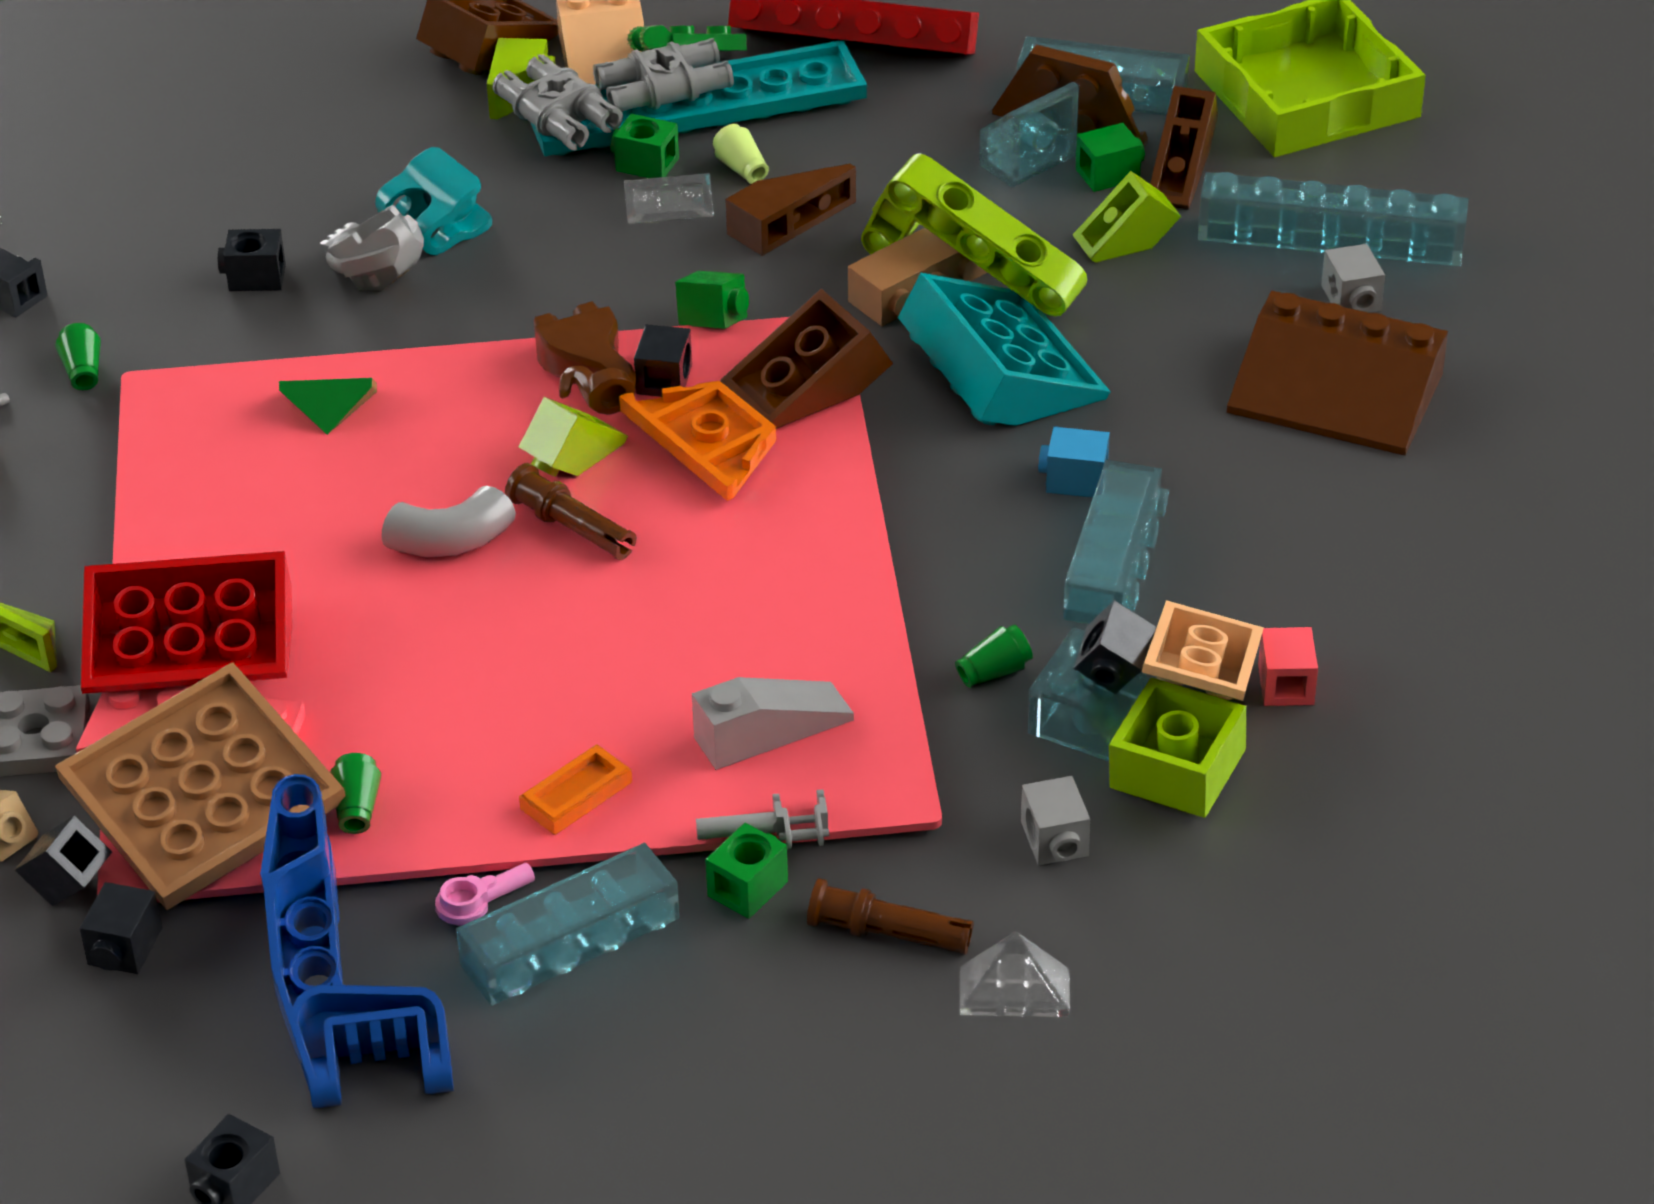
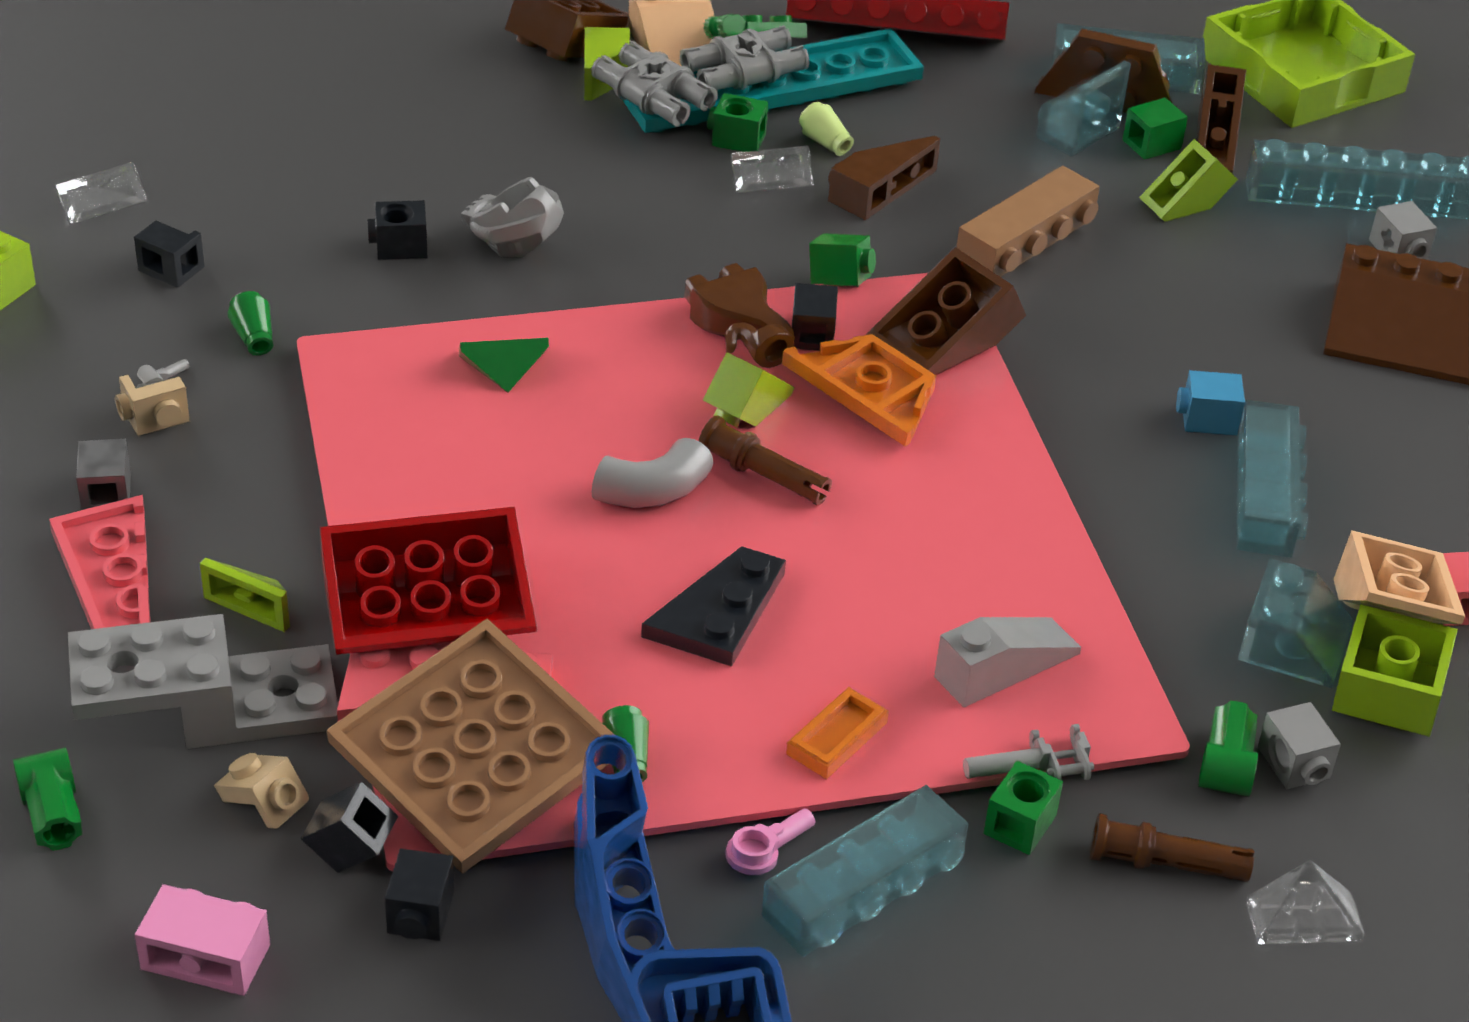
camera: 10 degrees left, 0 degrees up
(437, 195) = (563, 165): teal piece -> none
(489, 661) = (719, 608): none -> black wing
(976, 228) = (1071, 190): lime beam -> none
(979, 831) = (1229, 755): none -> green piece
(995, 656) = (1193, 587): green cone -> none
(998, 351) = (1108, 303): teal slope -> none
(1114, 647) = (1324, 577): black brick -> none

